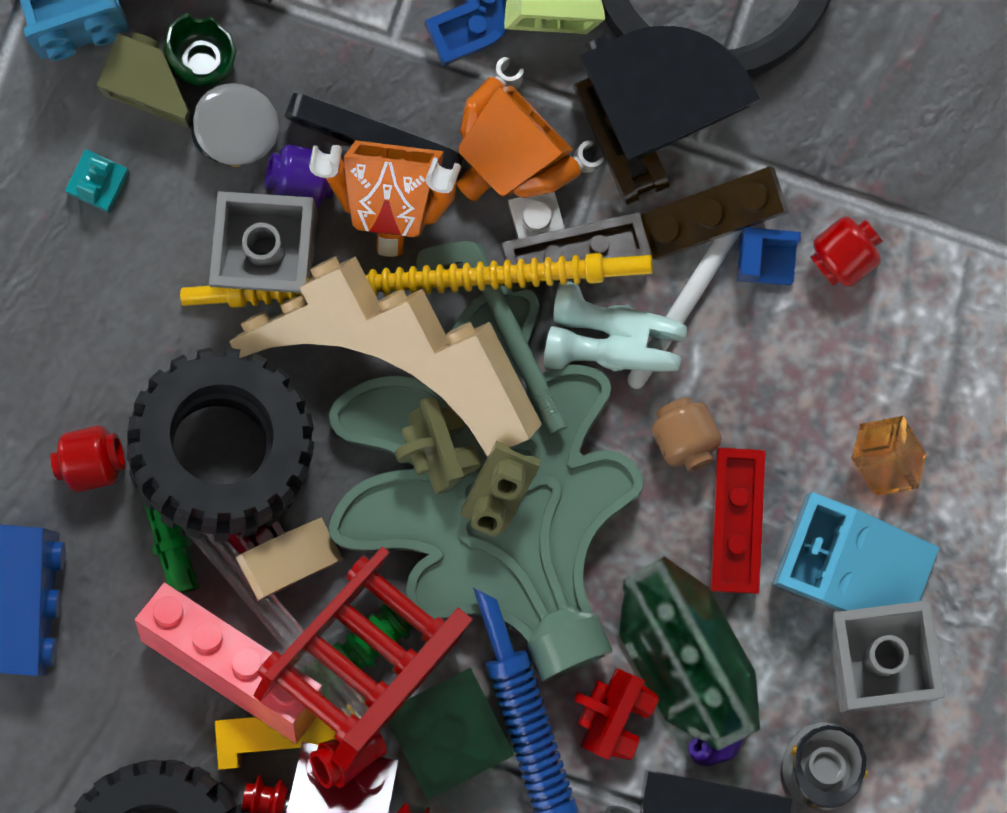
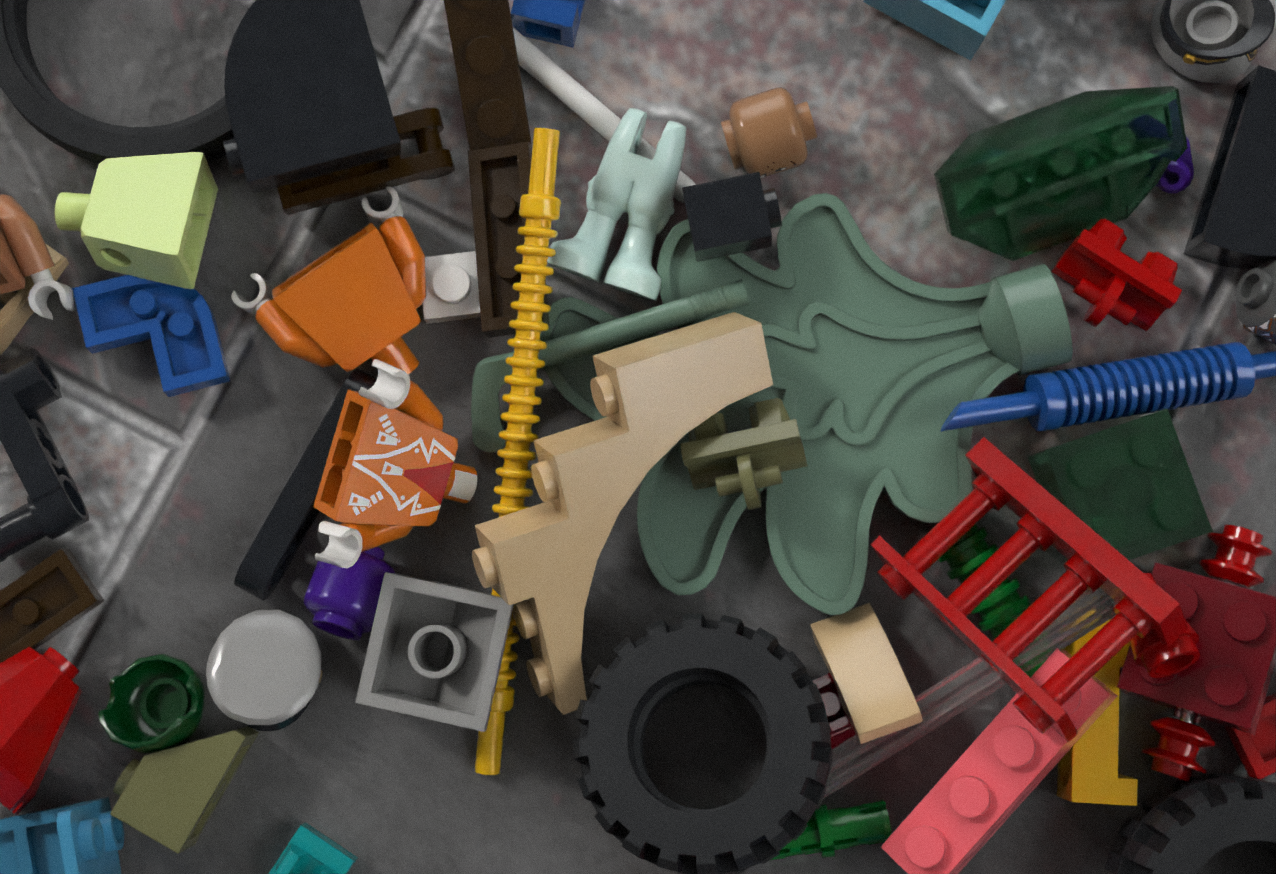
camera: 85 degrees left, 0 degrees up
(499, 489) = (819, 376): olive hips -> none
(611, 409) = (731, 216): none -> black brick
(737, 520) = (887, 87): red plate -> none

